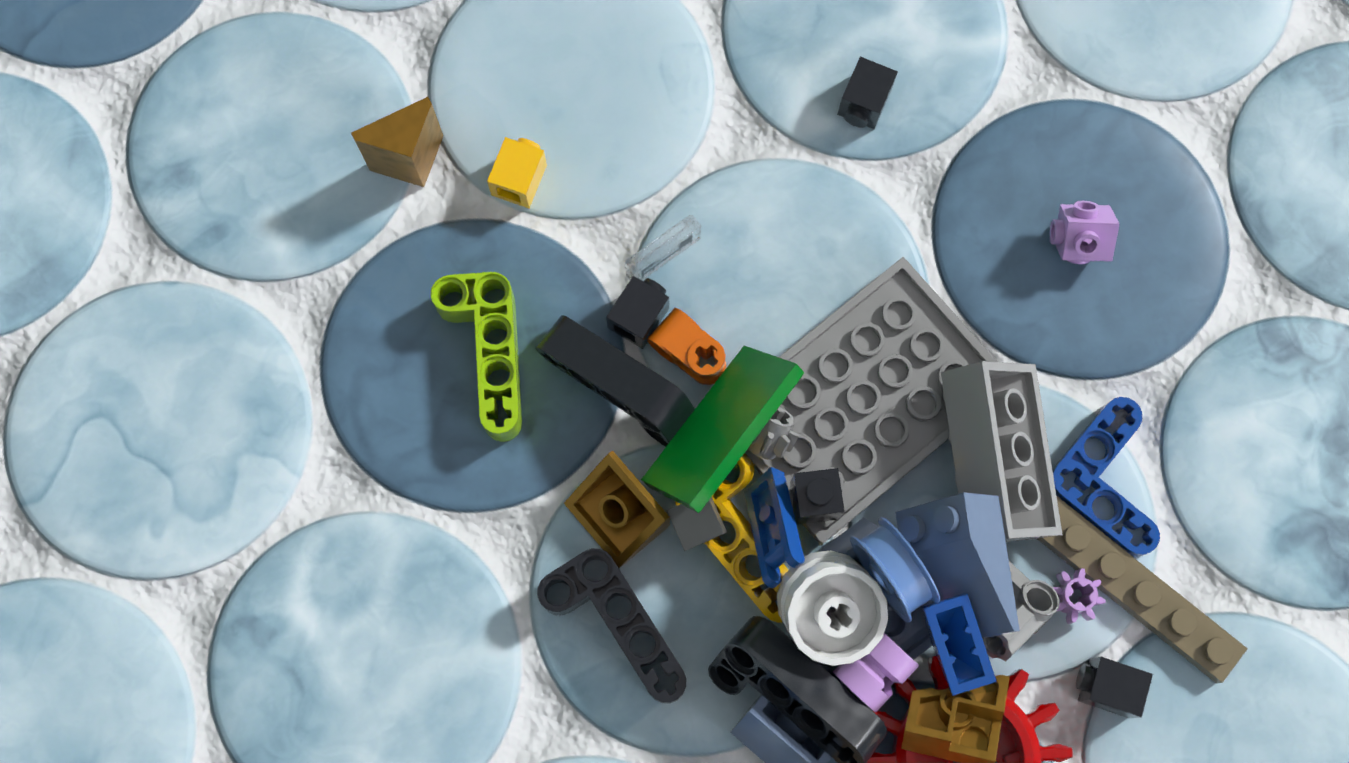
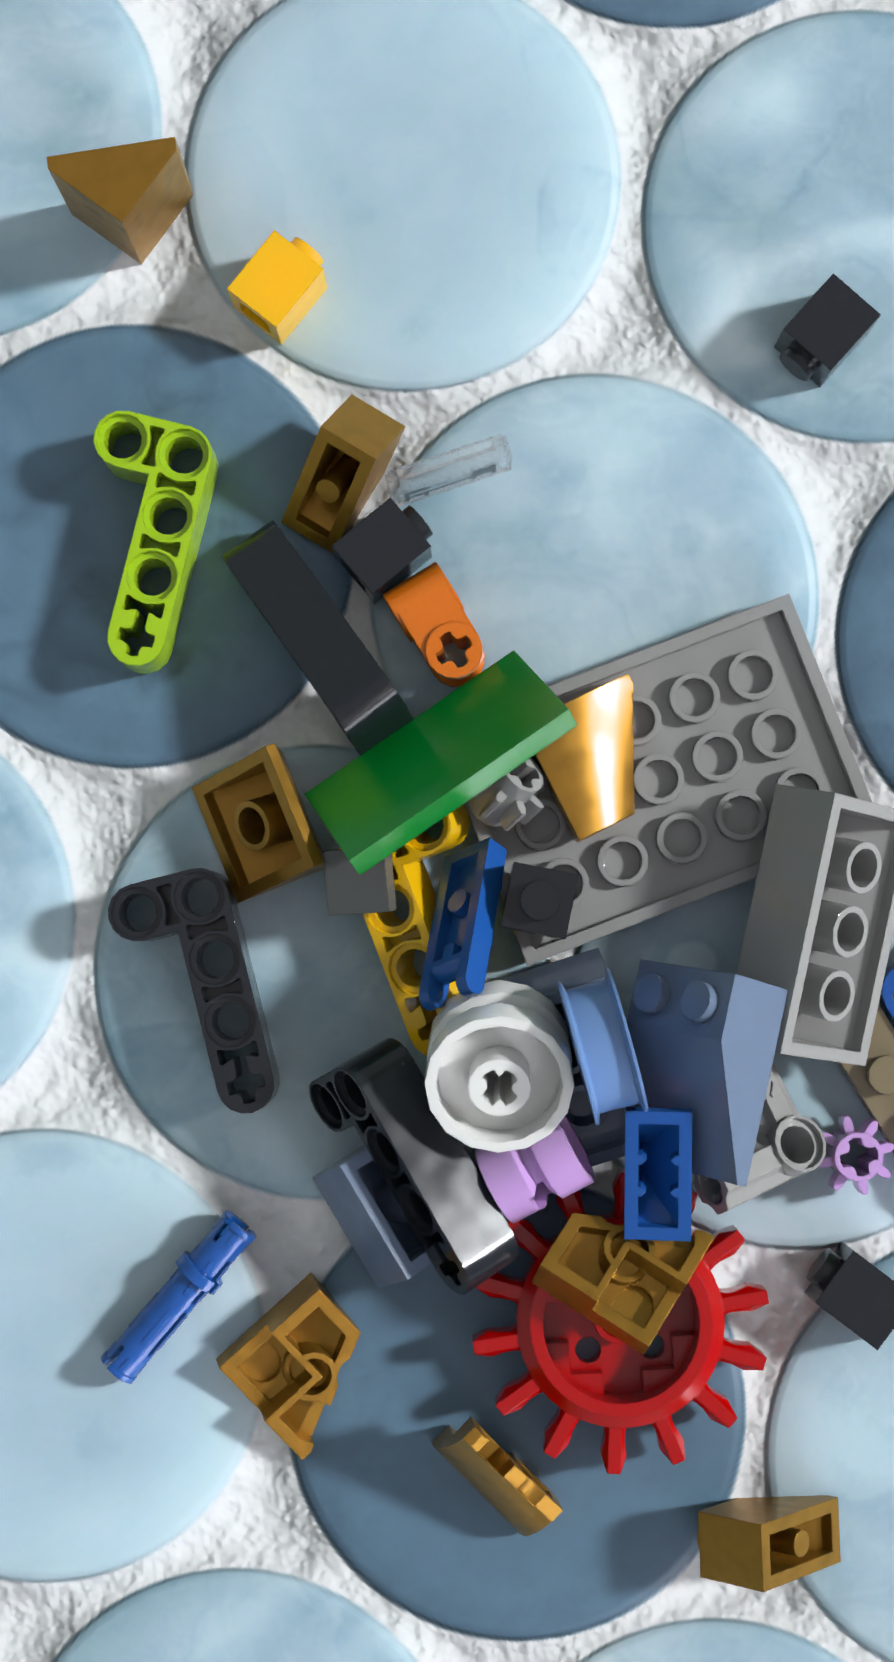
camera: 25 degrees right, 10 degrees up
(595, 272) = (342, 471): none -> pearl gold slope
(820, 399) = (594, 762): none -> slope

